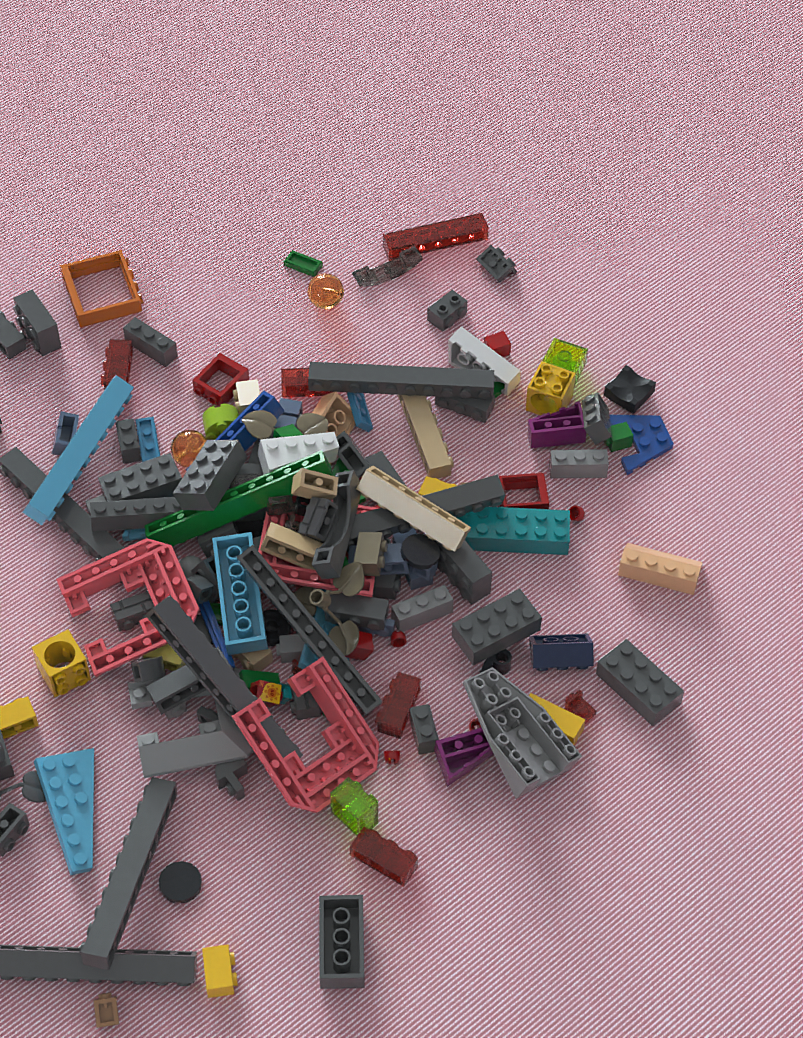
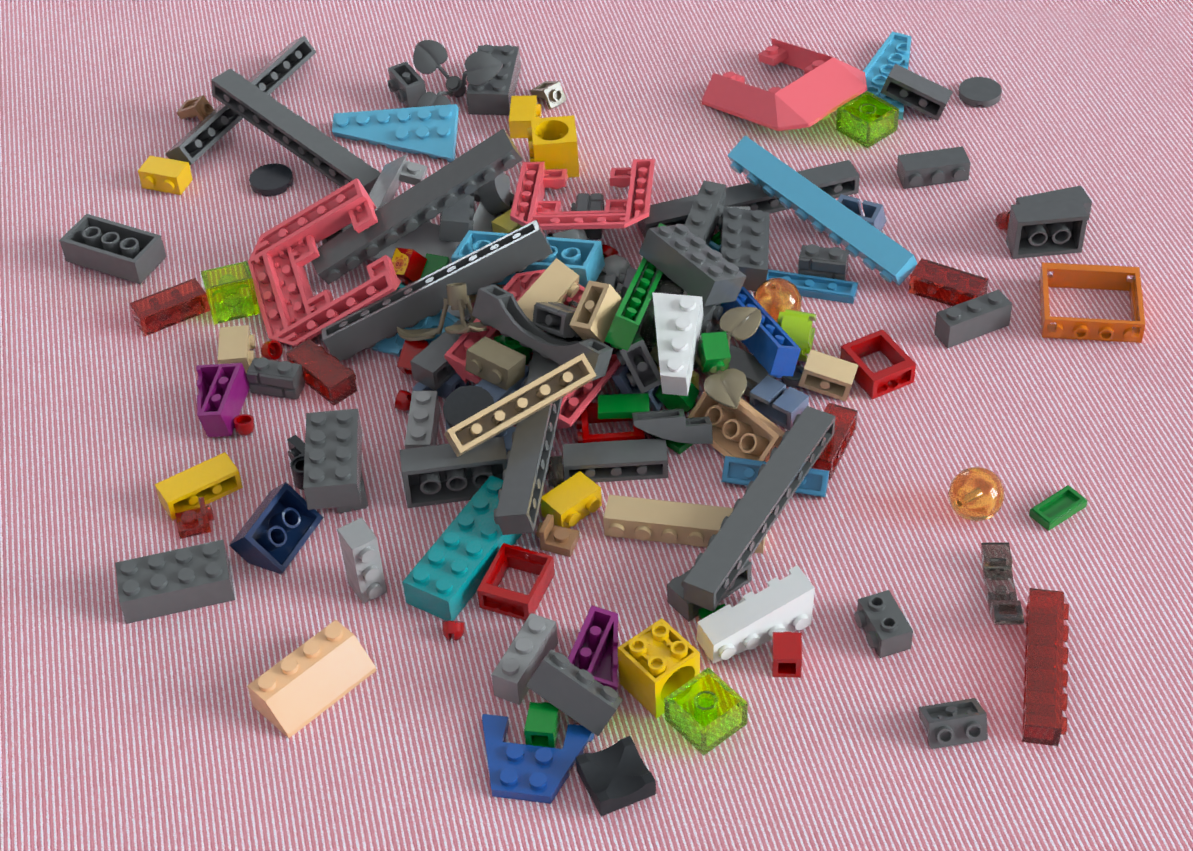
camera: 120 degrees right, 10 degrees down
(24, 357) = (1002, 220): none -> clear red hinge
(408, 776) = (236, 345): none -> tan brick
(519, 732) = (188, 418): light grey wedge -> none
(571, 565) = (362, 560): none -> light grey brick

